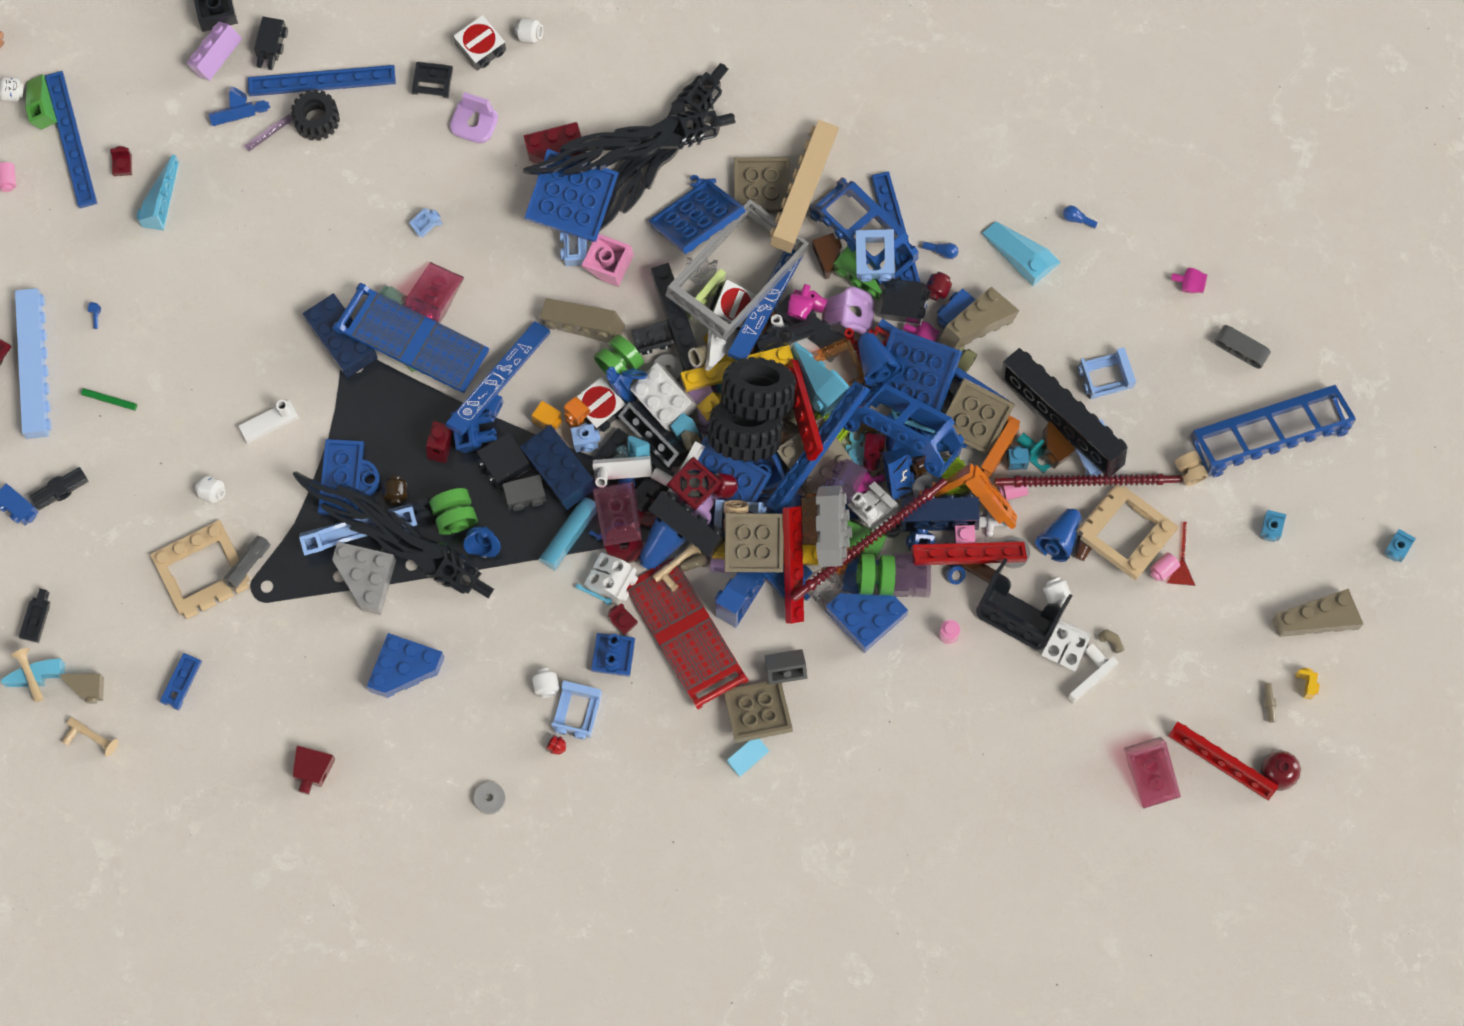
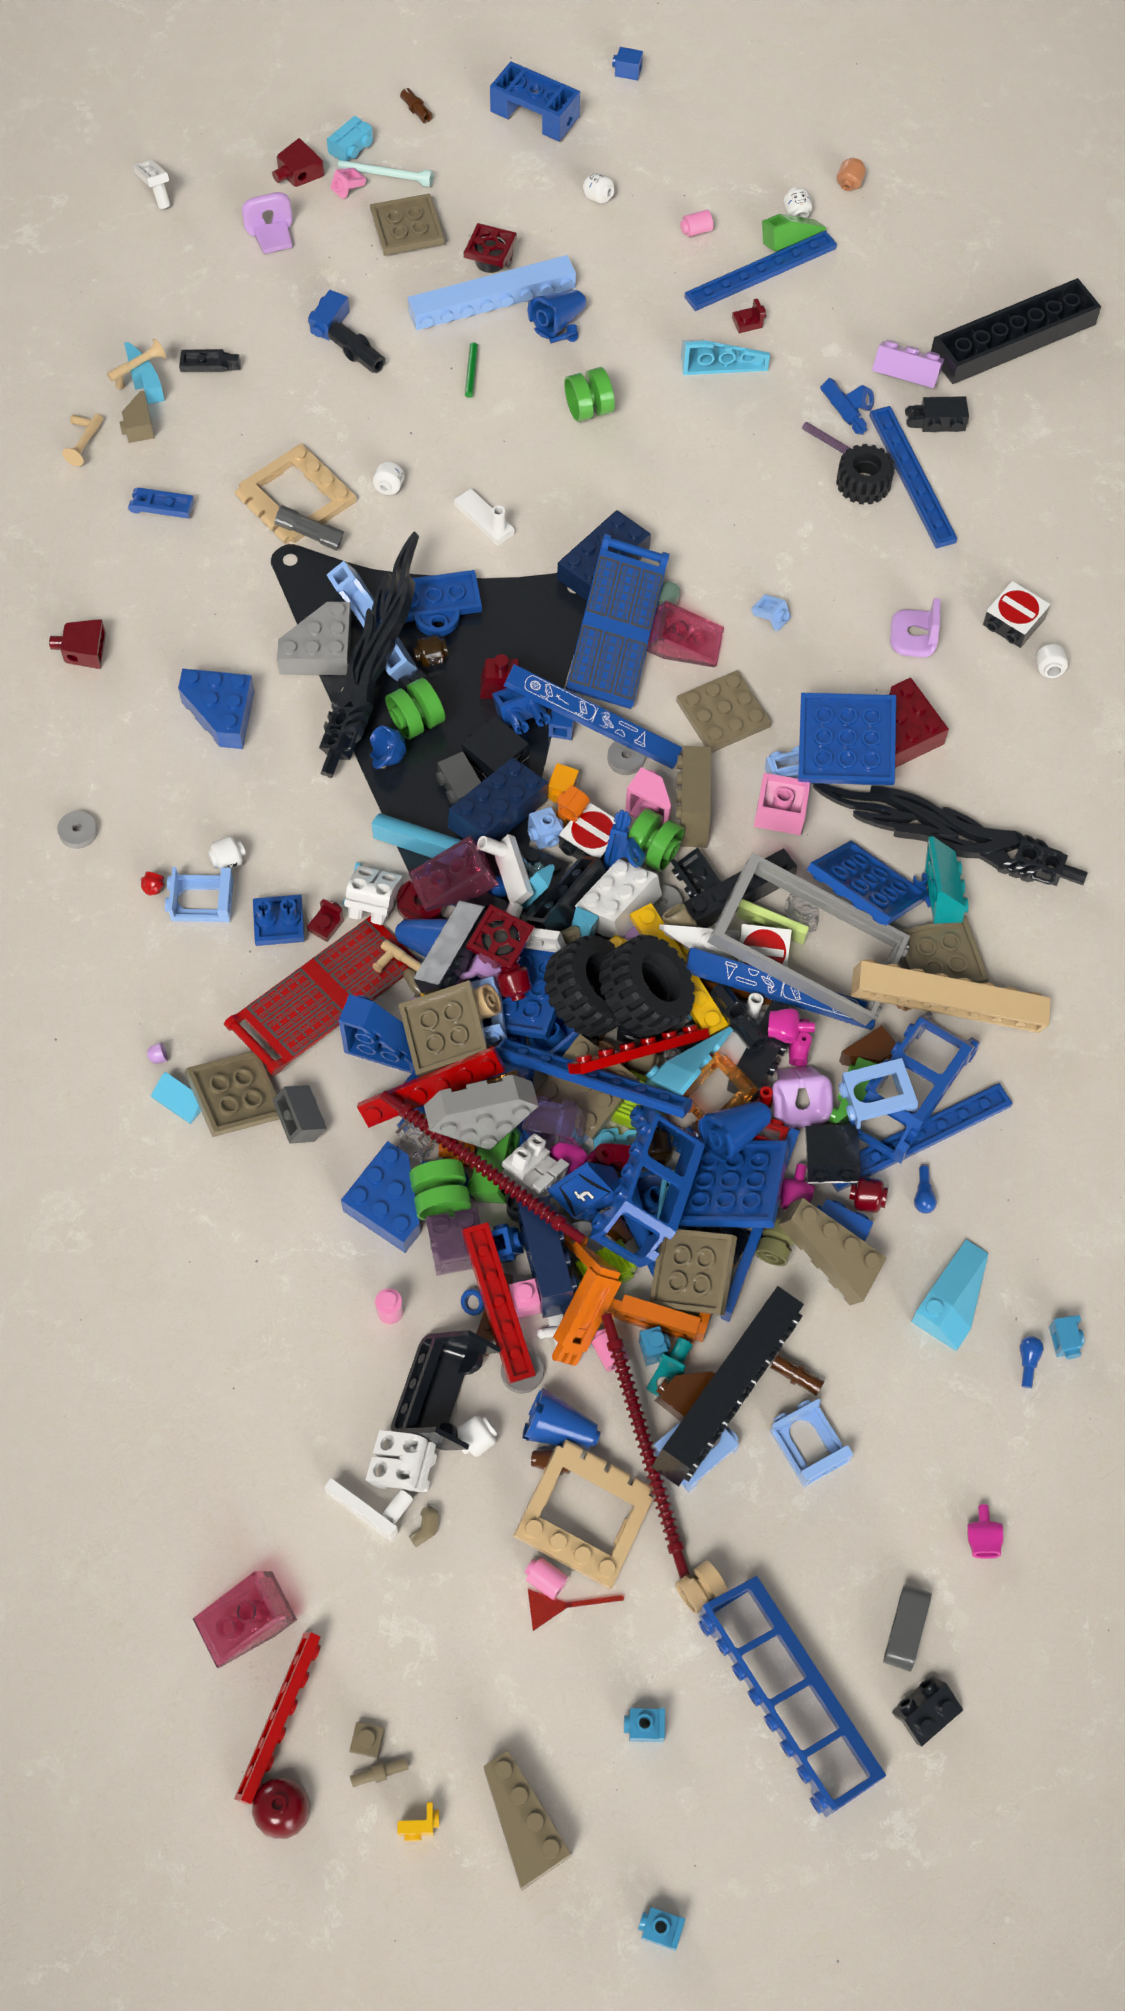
camera: 75 degrees right, 10 degrees down
(73, 315) = (555, 311): none -> blue cone
(174, 307) = (589, 394): none -> bright green wheel
(433, 74) = (959, 578): black plate -> none
(508, 282) = (723, 711): none -> dark tan plate
(537, 370) = (623, 765): none -> light grey piece
(579, 353) = (645, 792): none -> bright pink slope
(626, 145) = (934, 776): black piece -> none
(707, 765) = (157, 1053): none -> lavender hinge
(708, 164) = (944, 883): none -> teal slope
(1058, 369) = (797, 1374): none -> reddish brown pin
(1069, 188) = (1067, 1337): none -> dark azure brick
(1247, 707) = (367, 1740): none -> dark tan plate
(1295, 349) = (928, 1710): none -> black bracket

